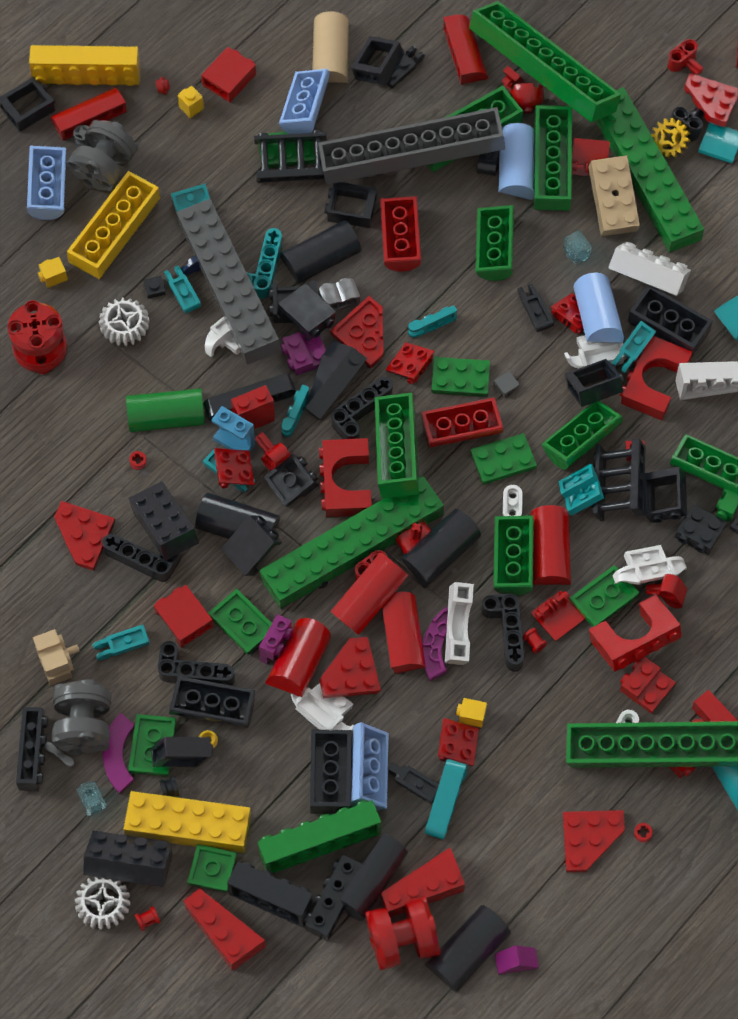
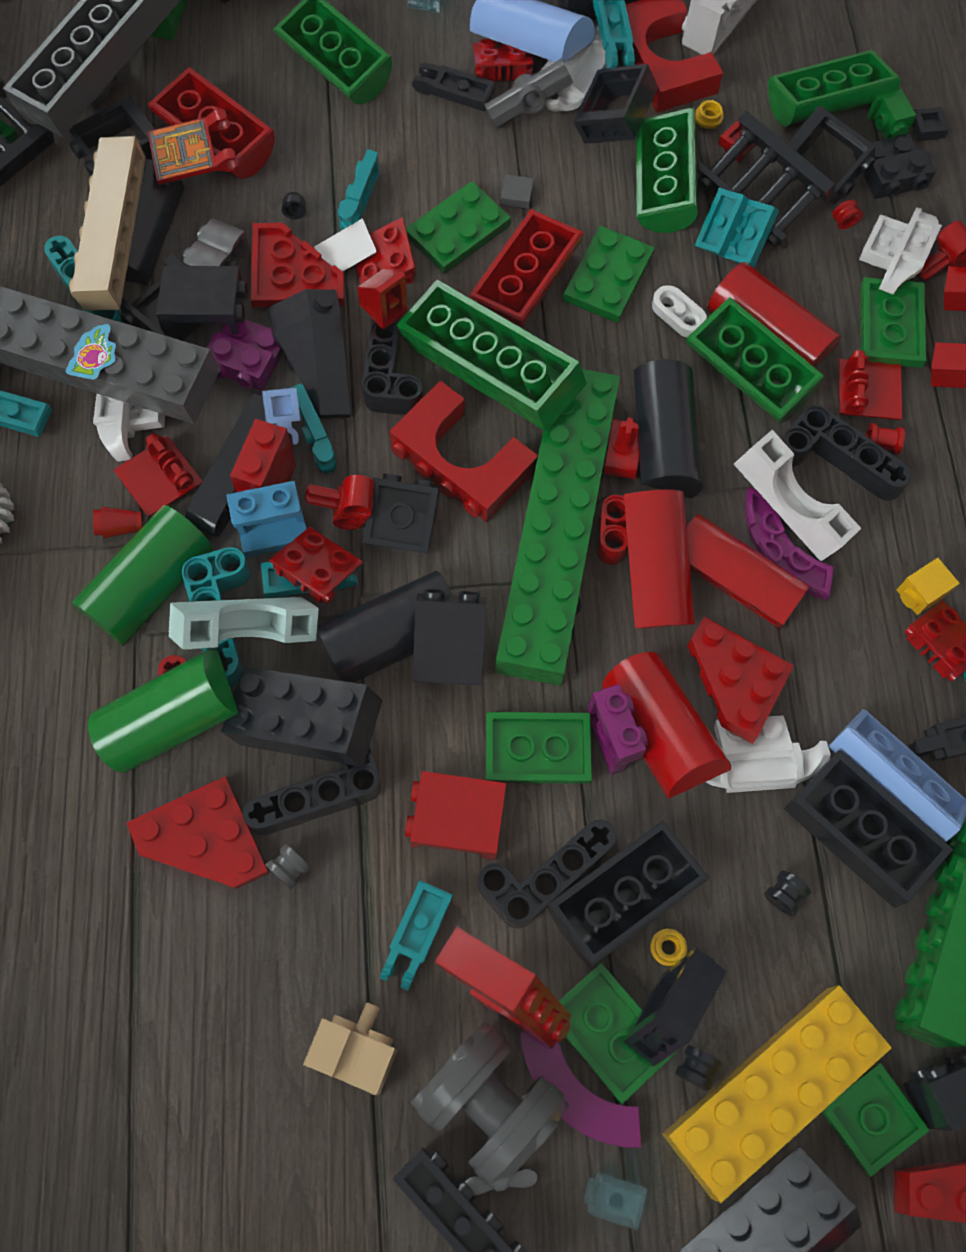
camera: 50 degrees left, 5 degrees up
(101, 573) = (287, 866): none -> dark grey wheel
(114, 470) = (162, 713): none -> green brick
(125, 680) = (505, 988): none -> red arch
(176, 454) = (211, 590): none -> teal beam
(177, 378) = (115, 522): none -> red cone
(193, 473) = (210, 622): none -> light aqua arch
(214, 373) = (158, 475): none -> red hinge
(231, 299) = (92, 353): none -> sticker
(274, 765) = (787, 893): none -> black wheel
(287, 391) = (282, 408): none -> light blue plate
(301, 244) = (108, 224): none -> tan brick
(371, 236) = (188, 149): none -> flag
(378, 380) = (384, 296): none -> red slope
(398, 302) = (293, 205): none -> black hinge
(398, 342) = (347, 246): none -> white sticker
(559, 342) = (518, 100): none -> dark grey piece
(643, 423) = (709, 114): none -> yellow plate
(645, 531) = (847, 214): none -> red bush

